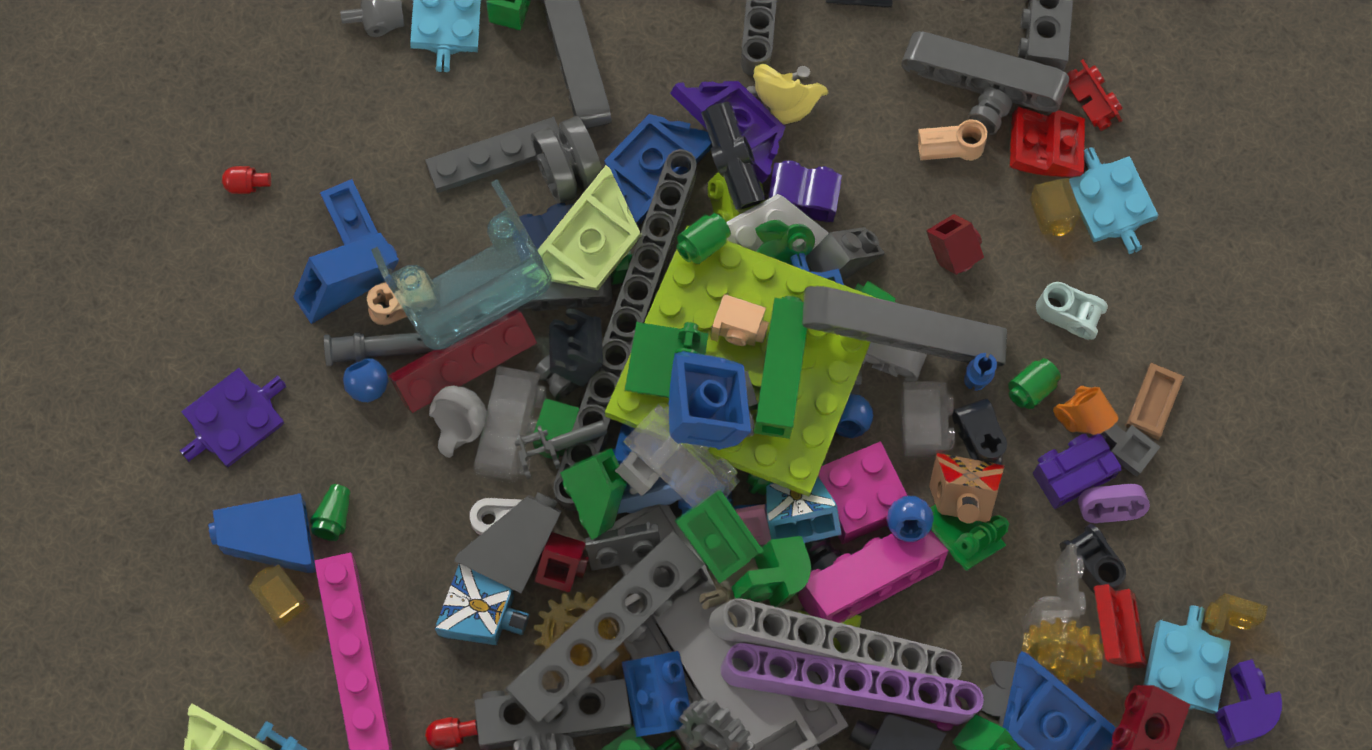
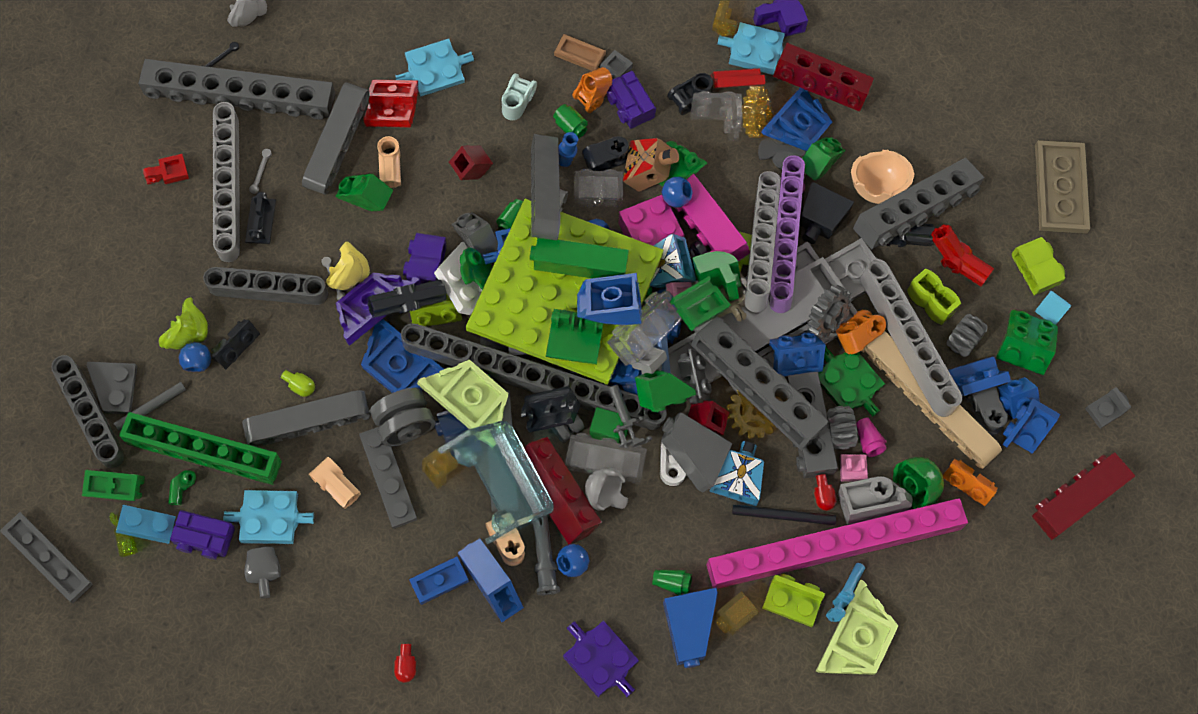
camera: 90 degrees left, 0 degrees up
(294, 678) = (793, 599): none -> lime bracket
(421, 674) = (783, 514): none -> black bar
(492, 84) = (332, 480): none -> light nougat piece
(493, 206) = (437, 466): none -> clear yellow bracket
(626, 44) = (299, 383): none -> lime cylinder
(703, 238) = (482, 310): green brick -> none
(739, 322) = (547, 287): light nougat brick -> none
(904, 111) = (365, 192): none -> green slope
(991, 108) = (365, 137): dark grey wheel -> none
(1055, 207) = (442, 100): clear yellow brick -> none
(1102, 106) = (363, 67): red hinge -> none
(1113, 503) = (653, 79): medium lavender beam -> none

